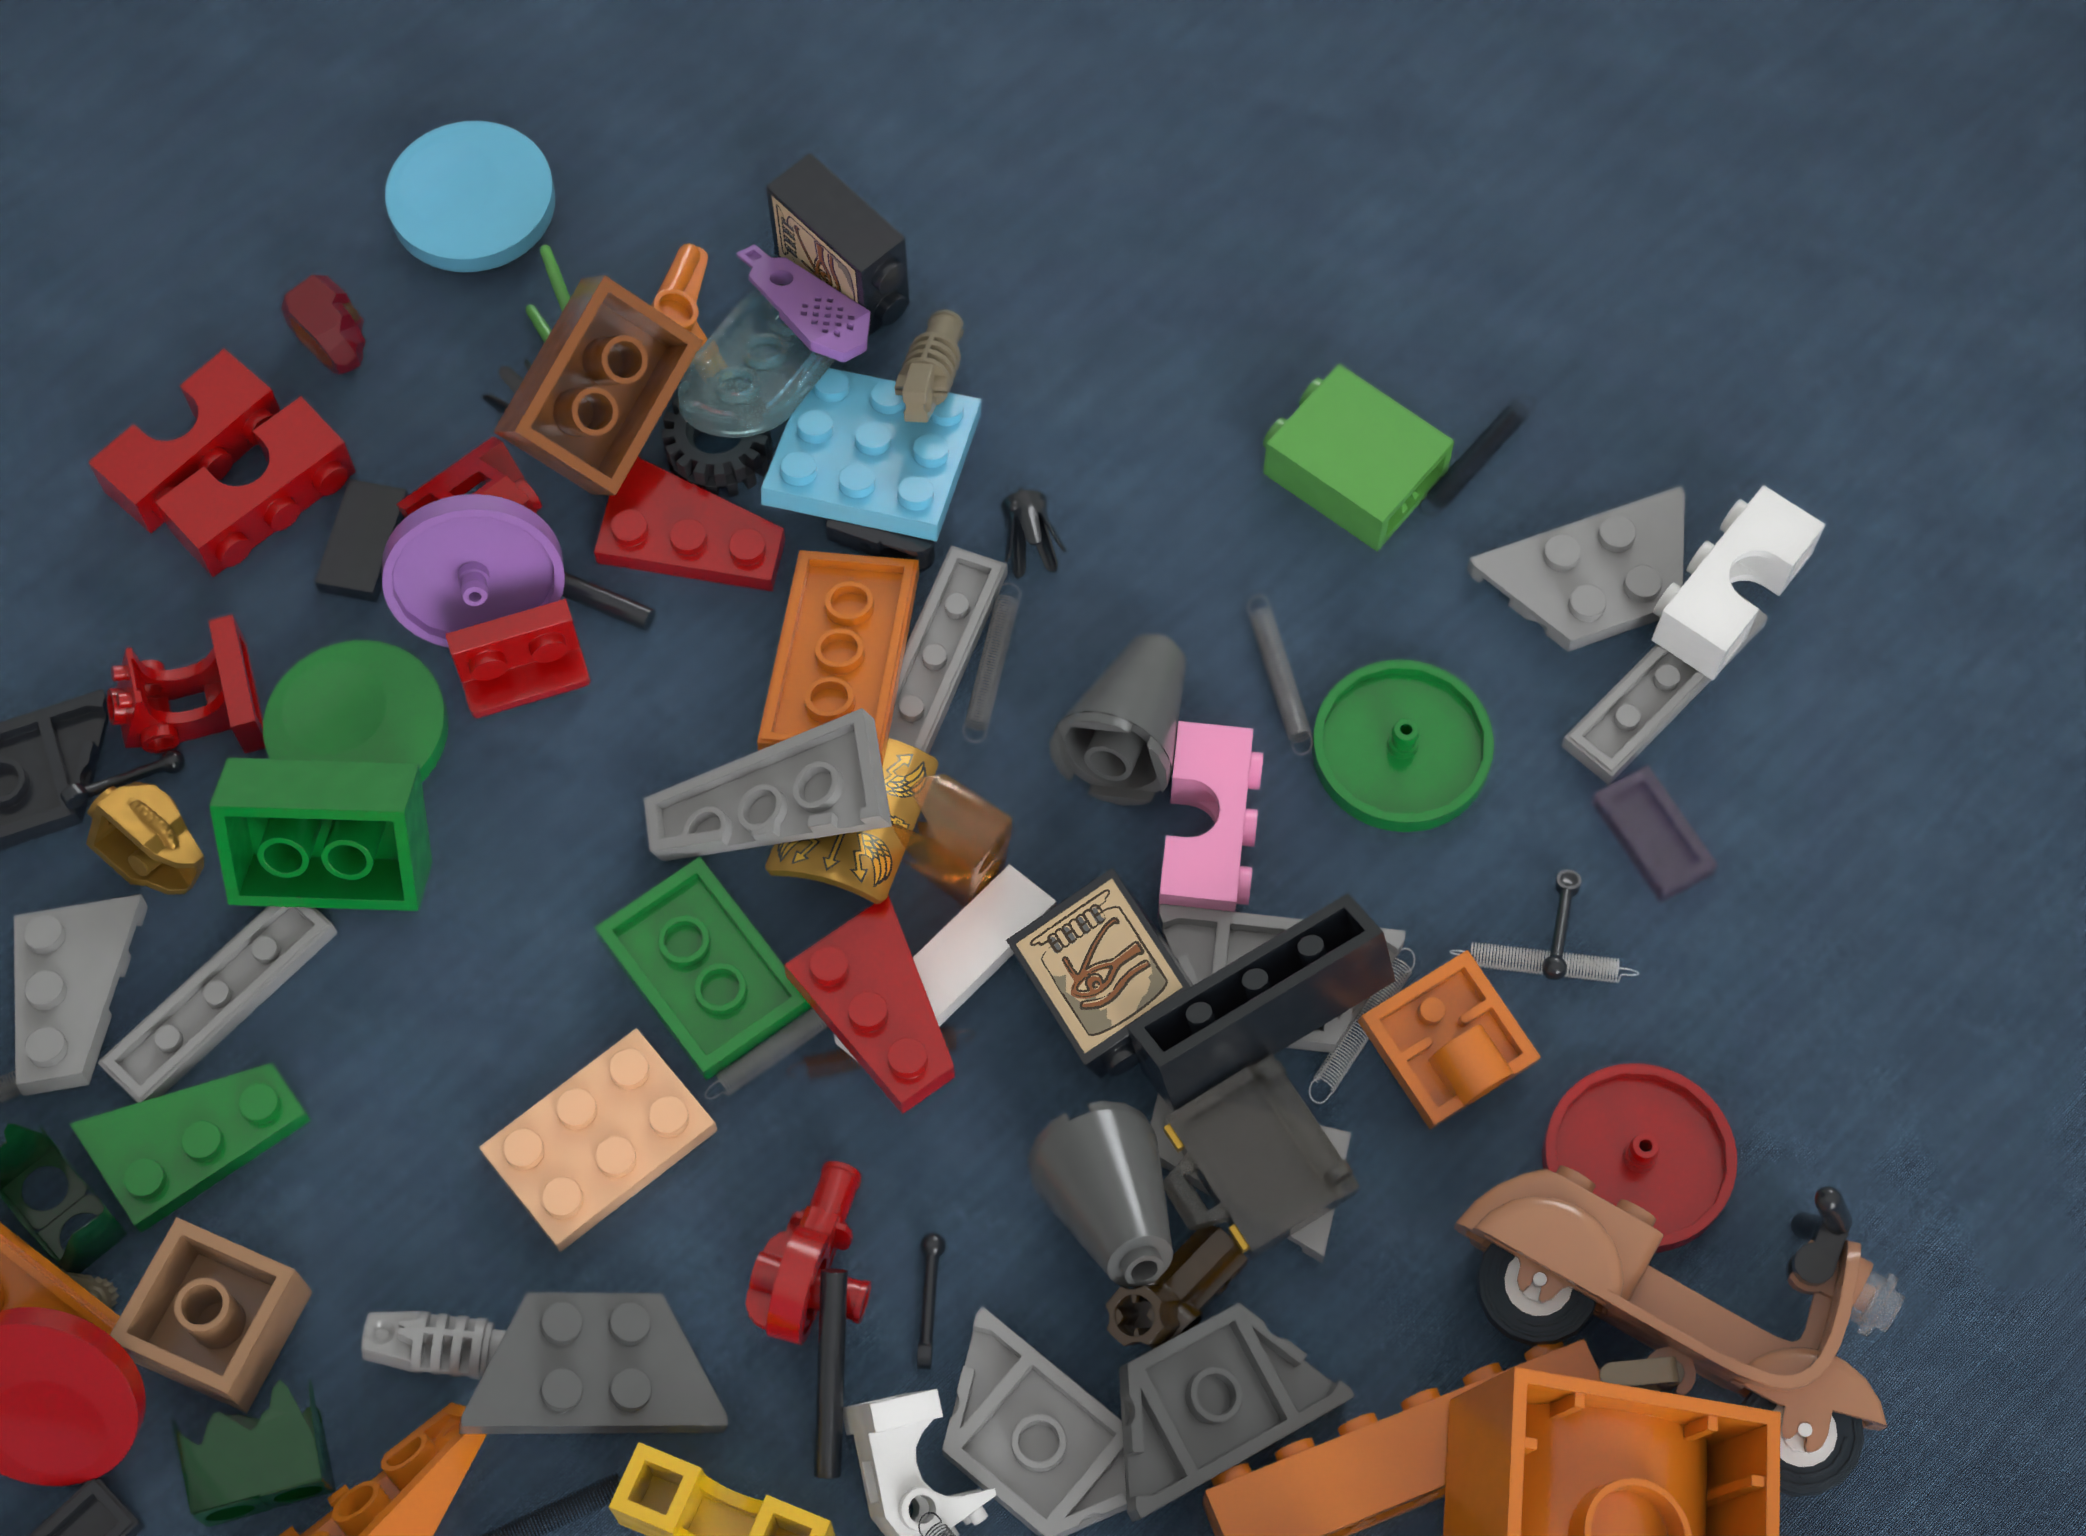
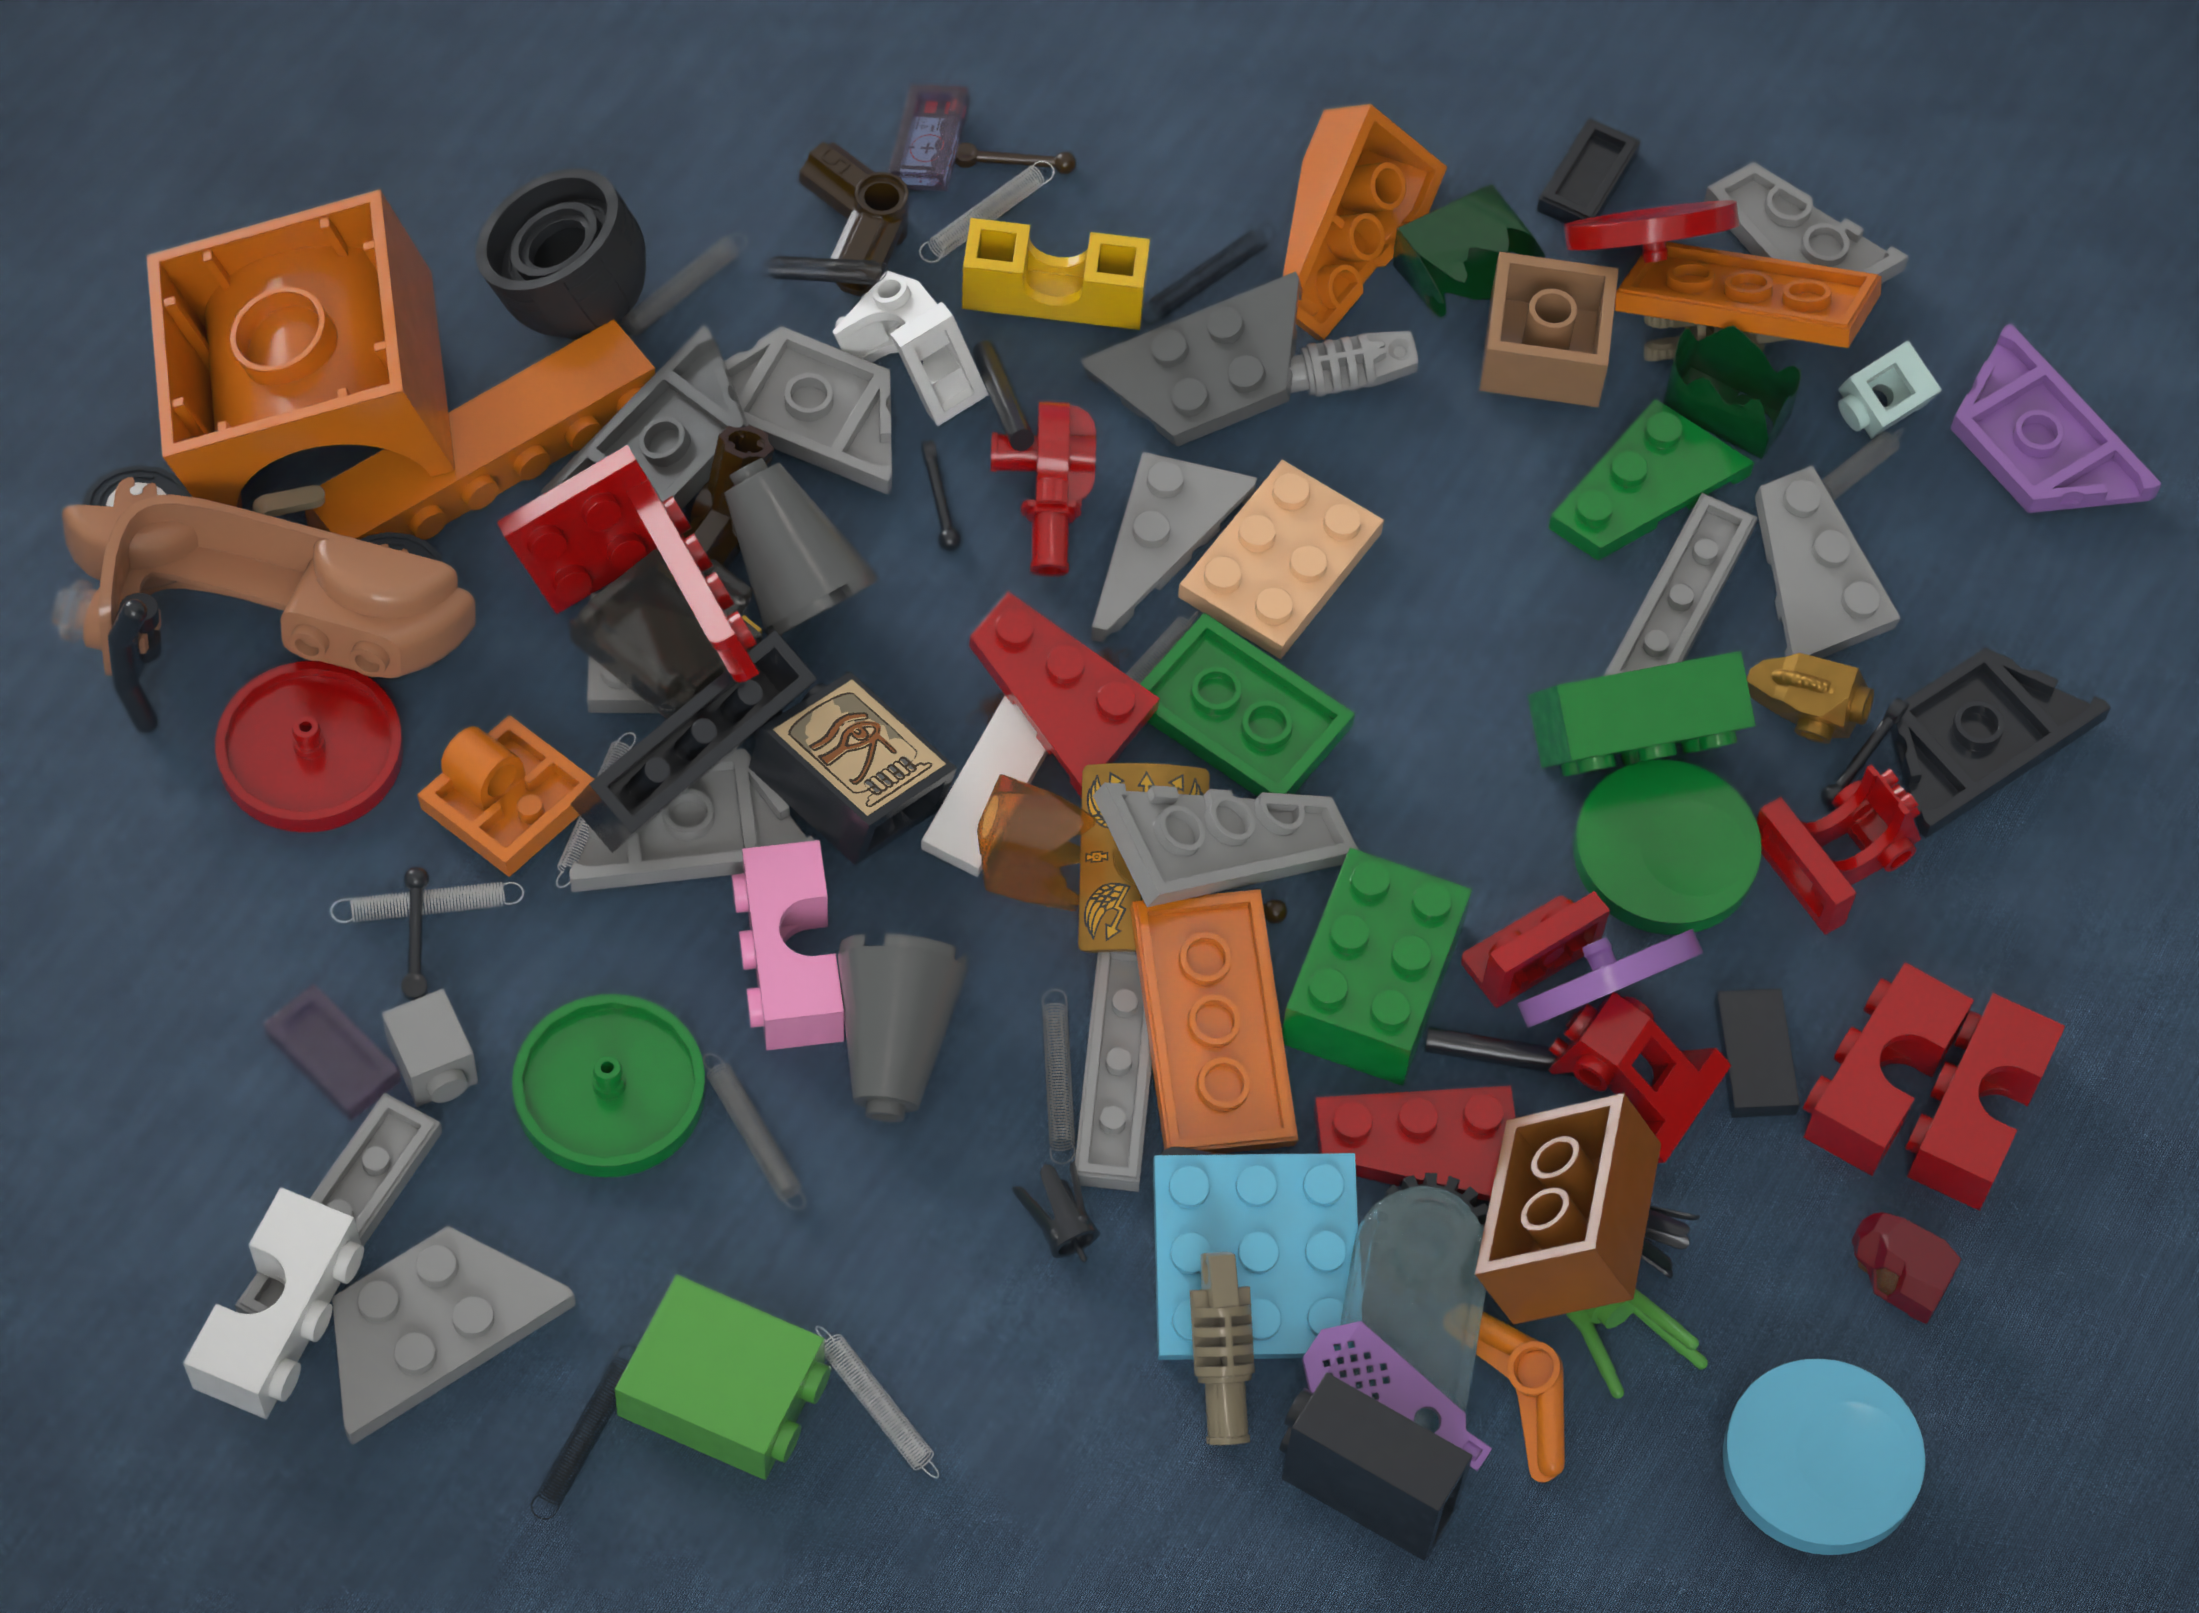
camera: 160 degrees right, 5 degrees down
(672, 674) = (1375, 966): none -> green brick
(701, 1209) = (1166, 518): none -> light grey wing
(1237, 421) = (882, 1400): none -> white piece
(1238, 1179) = (603, 526): none -> red bracket
(1564, 799) = (430, 1048): none -> light grey brick

